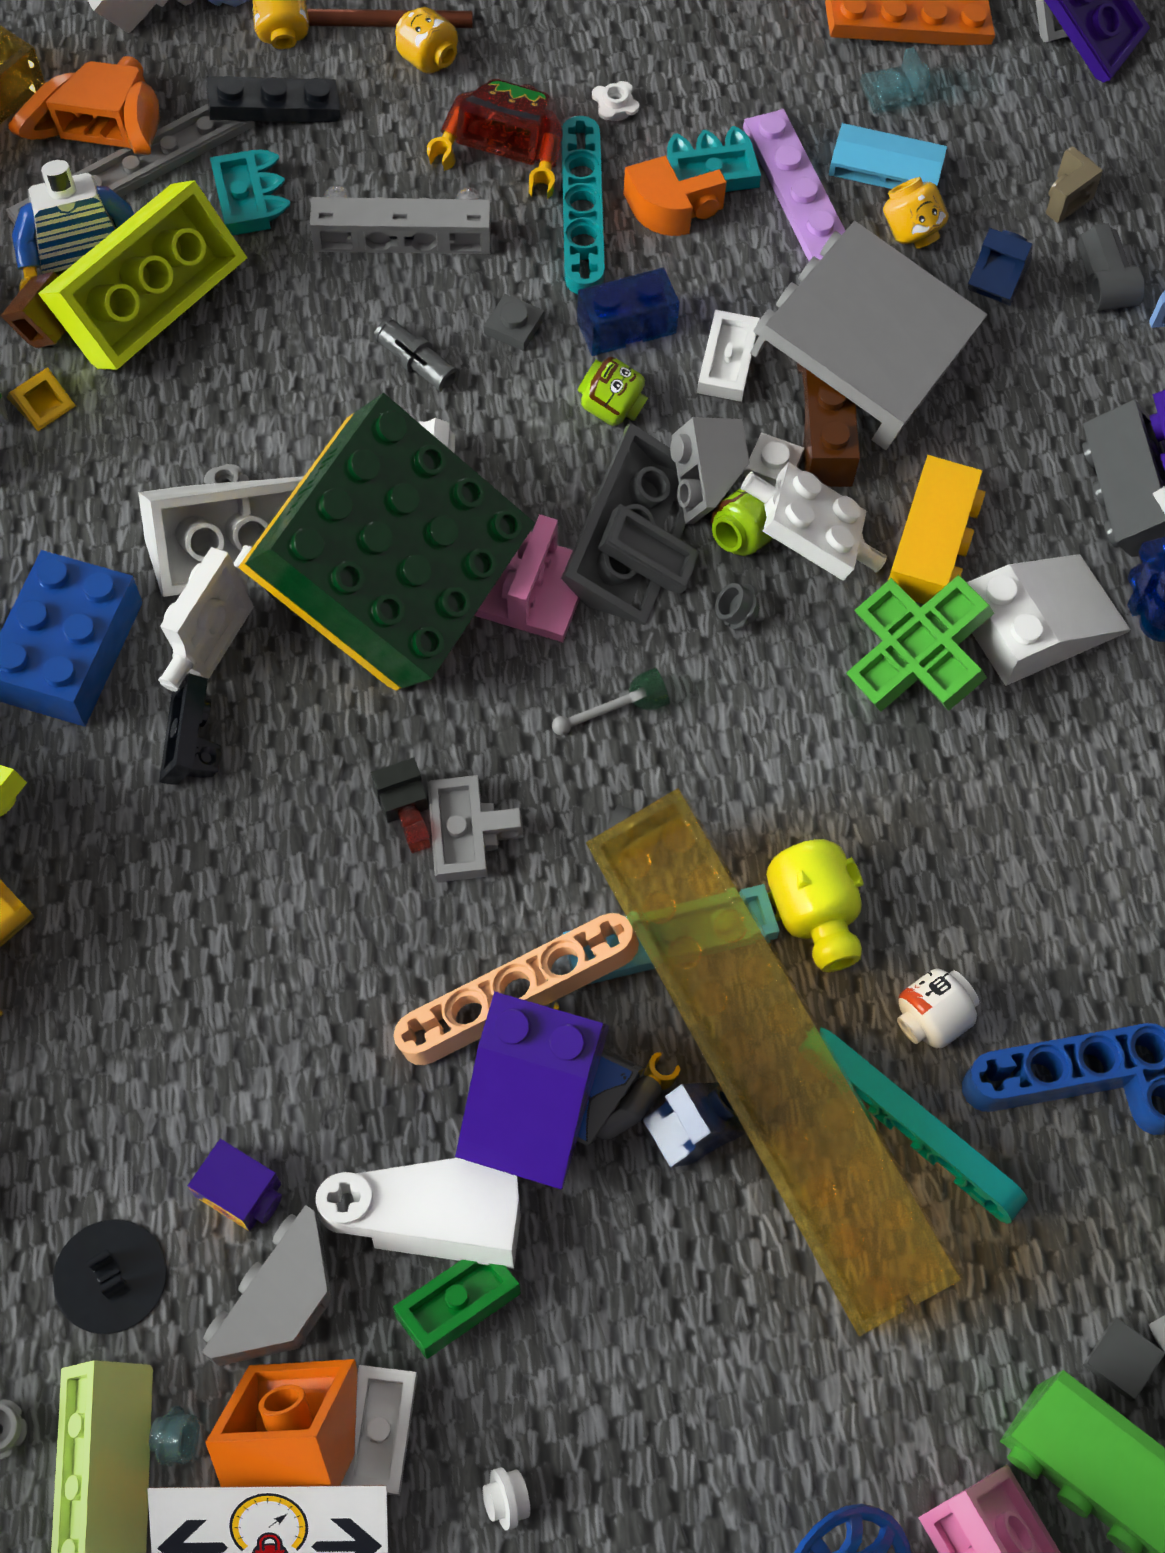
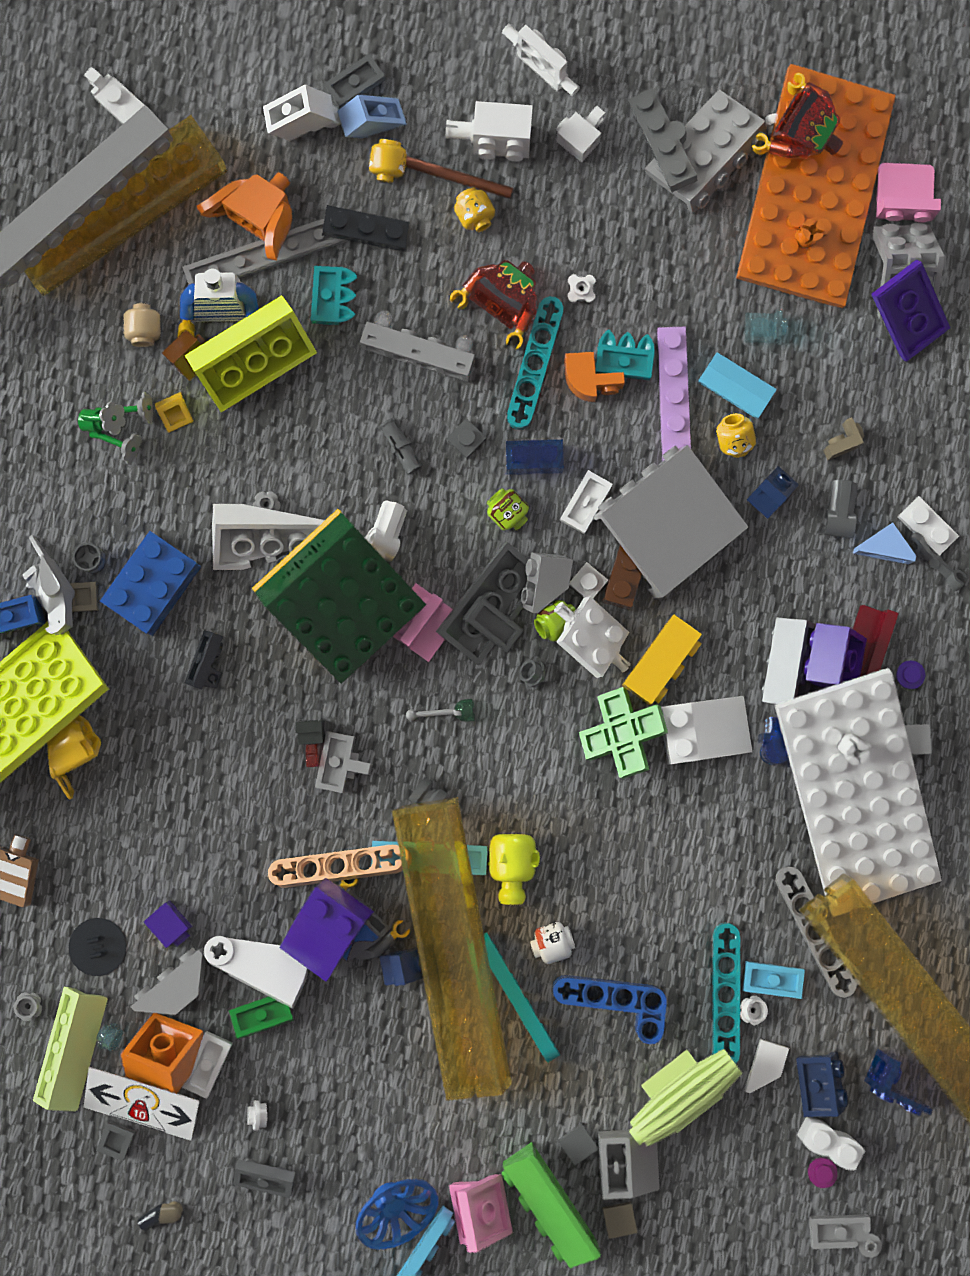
camera: 20 degrees right, 20 degrees up
(206, 616) = (231, 599): white plate -> none

